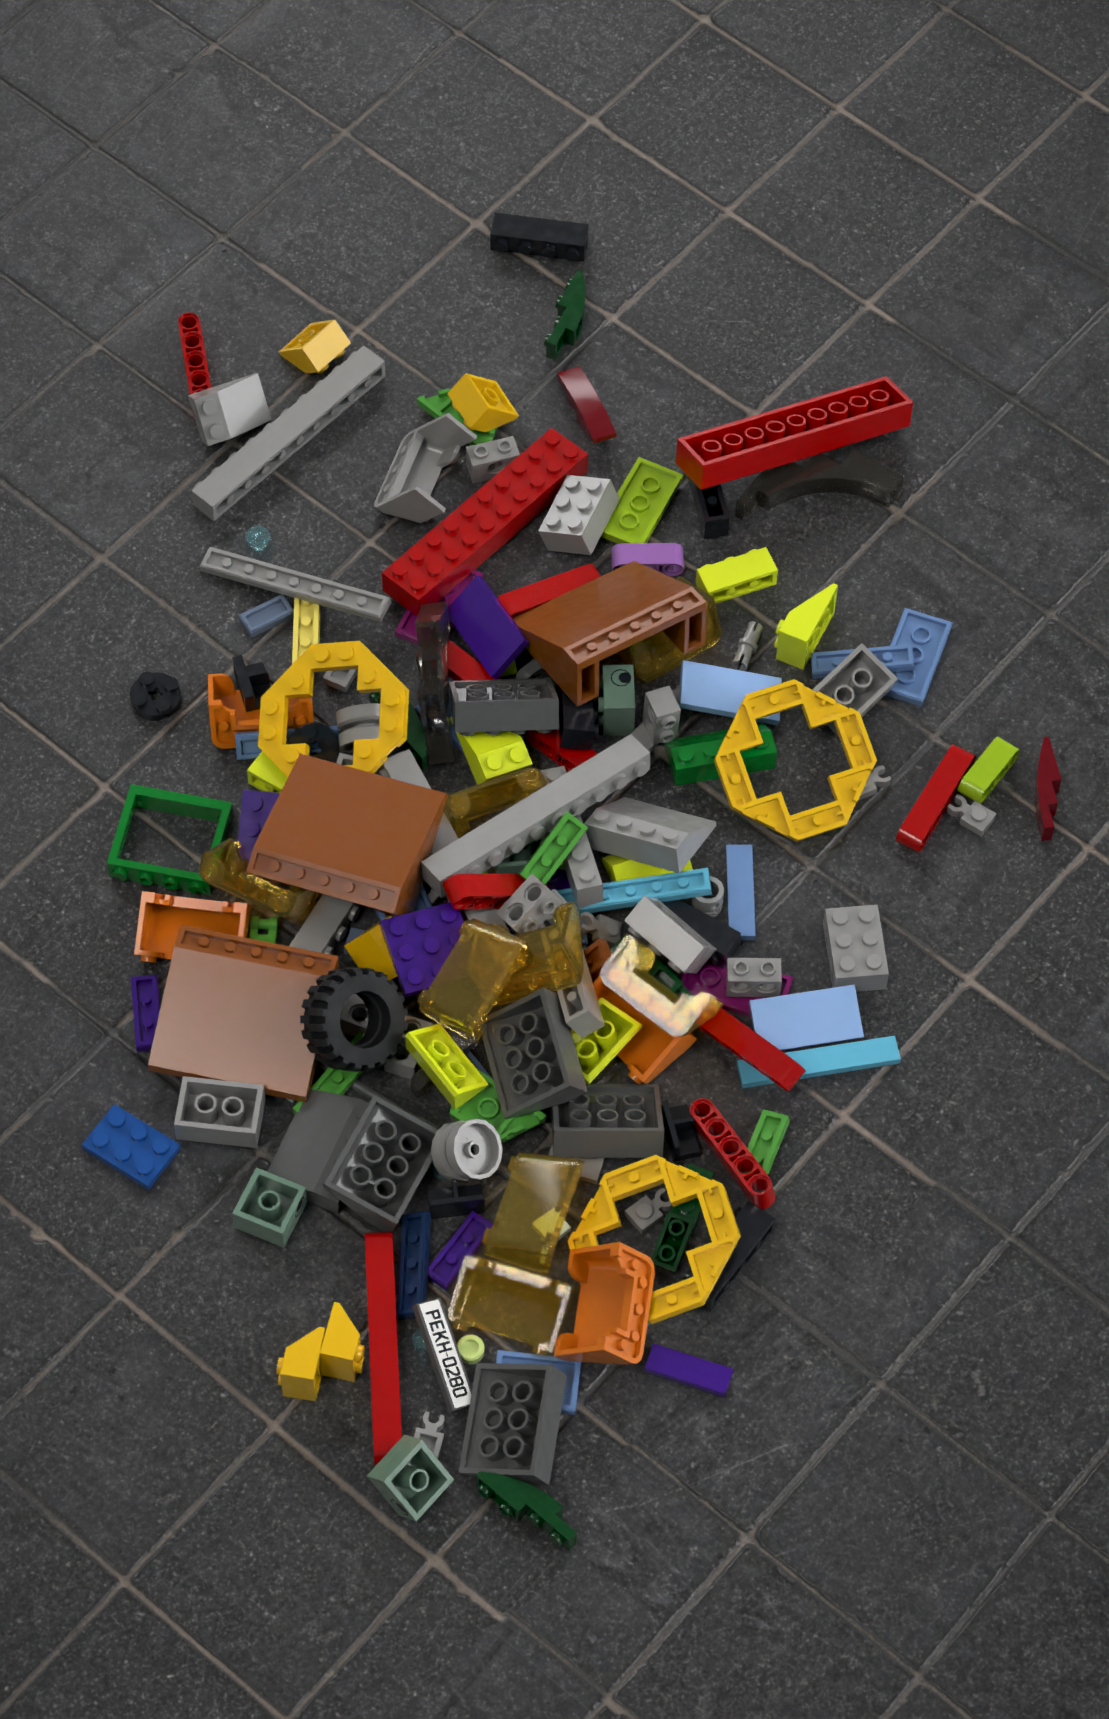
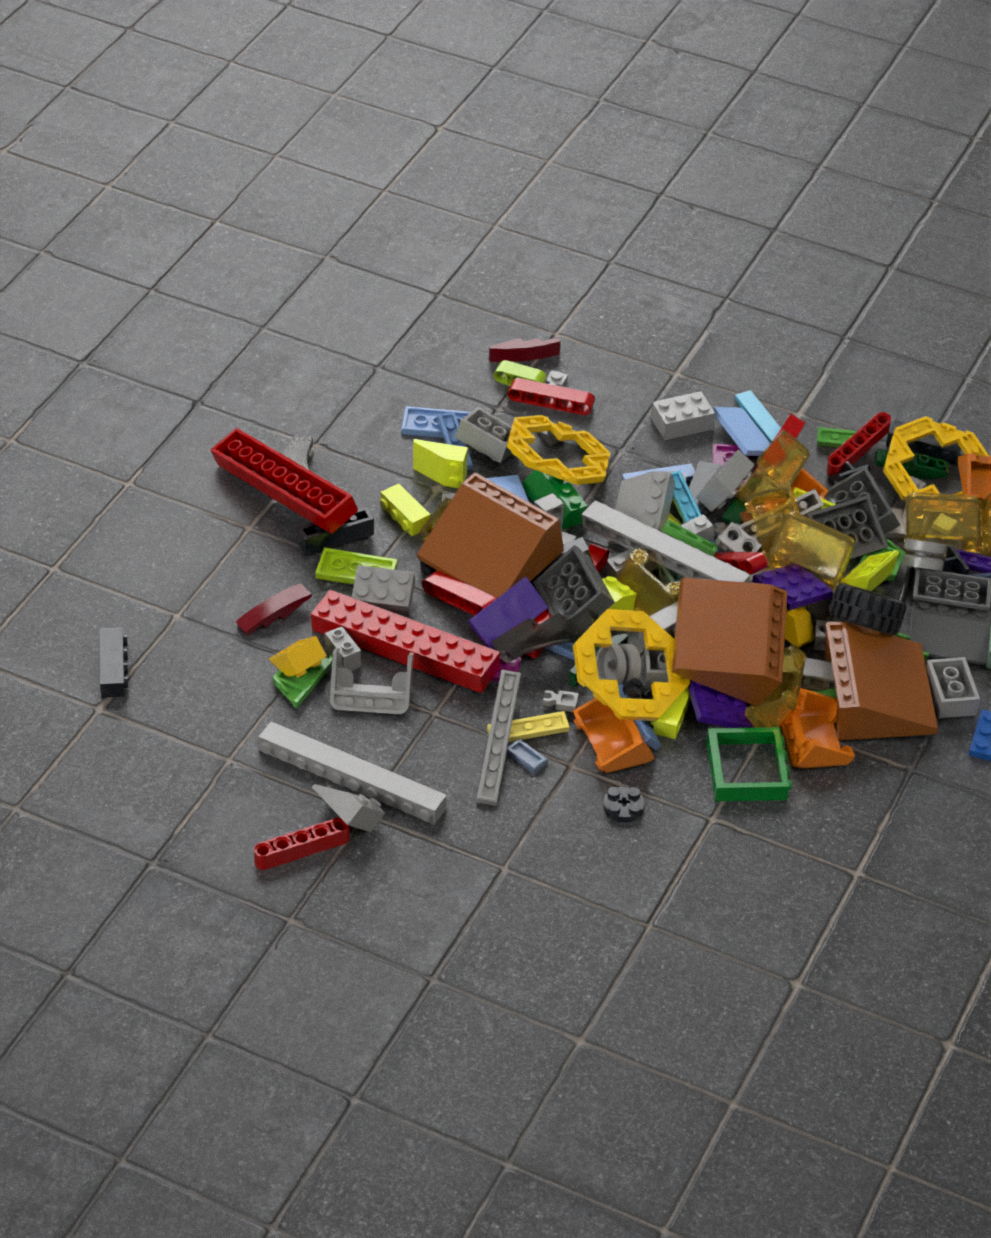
camera: 105 degrees left, 15 degrees down
(145, 1009) = (888, 751): dark purple tile -> none
(252, 682) = (595, 745): black panel -> none
(258, 543) = (456, 774): clear light blue plate -> none
(316, 346) = (259, 774): yellow slope -> none
(570, 316) = (182, 630): dark green slope -> none
(662, 557) = (405, 553): medium lavender beam -> none
(753, 977) = (726, 445): light grey brick -> none

